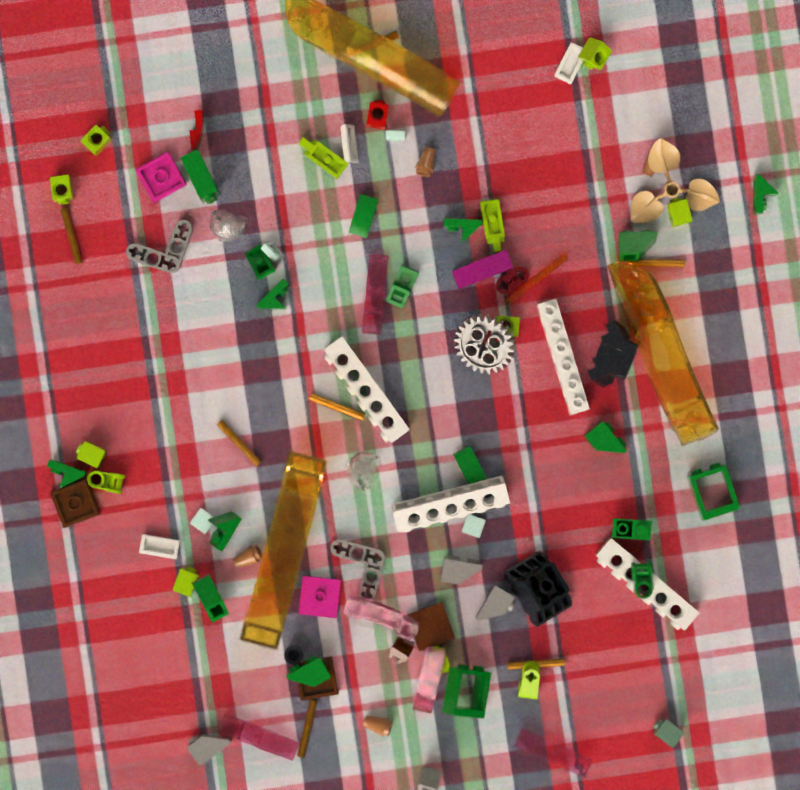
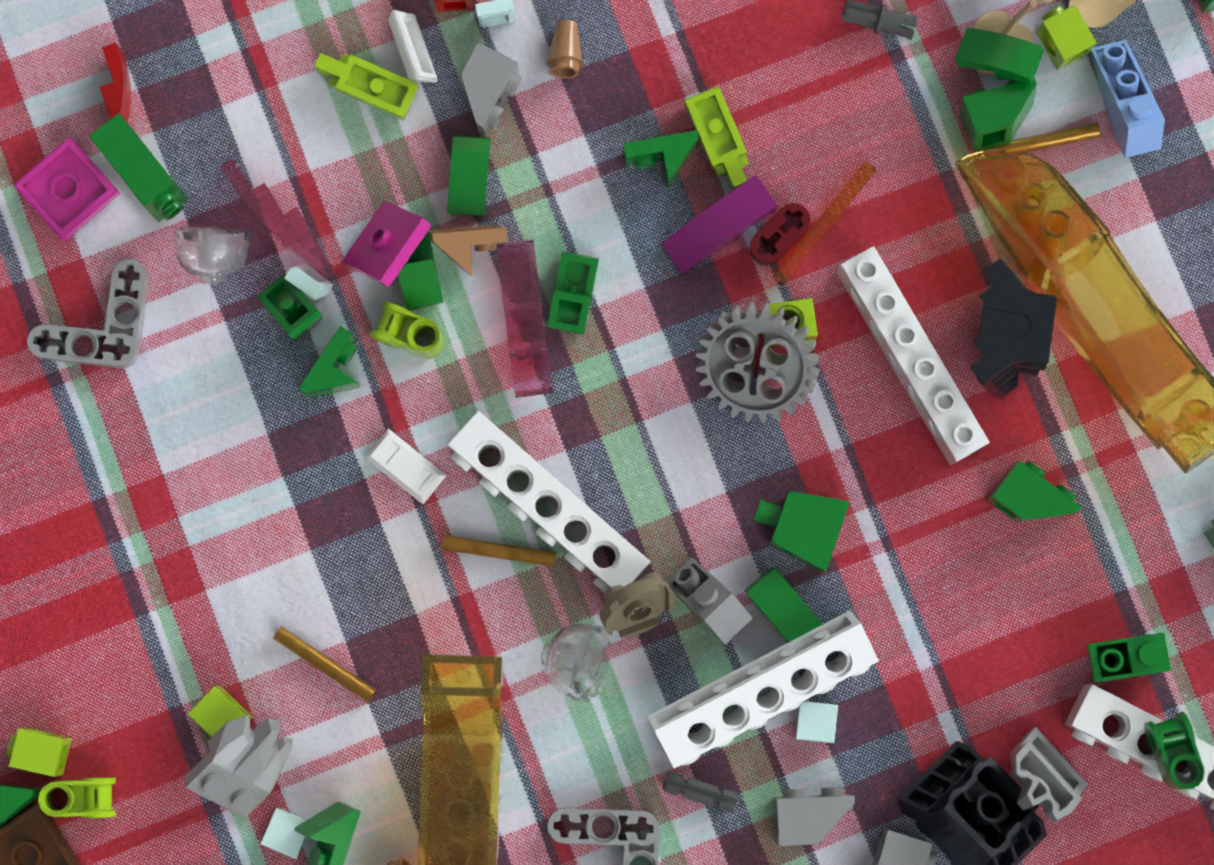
camera: 10 degrees left, 5 degrees down
(183, 457) = (217, 709): none -> lime brick
(188, 483) = (240, 765): none -> light grey plate
(268, 223) = (287, 227): none -> clear pink slope
(299, 354) = (405, 466): none -> white tile
(314, 241) = (386, 243): none -> dark pink plate
(314, 287) = (402, 327): none -> lime piece
(327, 257) = (420, 278): none -> green slope
(350, 248) = (457, 242): none -> medium nougat slope
(382, 171) = (487, 82): none -> light grey slope
(398, 449) = (636, 606): none -> dark tan plate
(408, 546) = (700, 792): none -> dark grey axle
(434, 454) = (709, 600): none -> light grey slope
(489, 429) = (804, 526): none -> green torso
(577, 577) = (1045, 776): none -> light grey plate
(588, 182) = (879, 18): none -> dark grey axle
(642, 215) = (996, 52): none -> green slope
(702, 251) = (1128, 99): none -> light blue slope

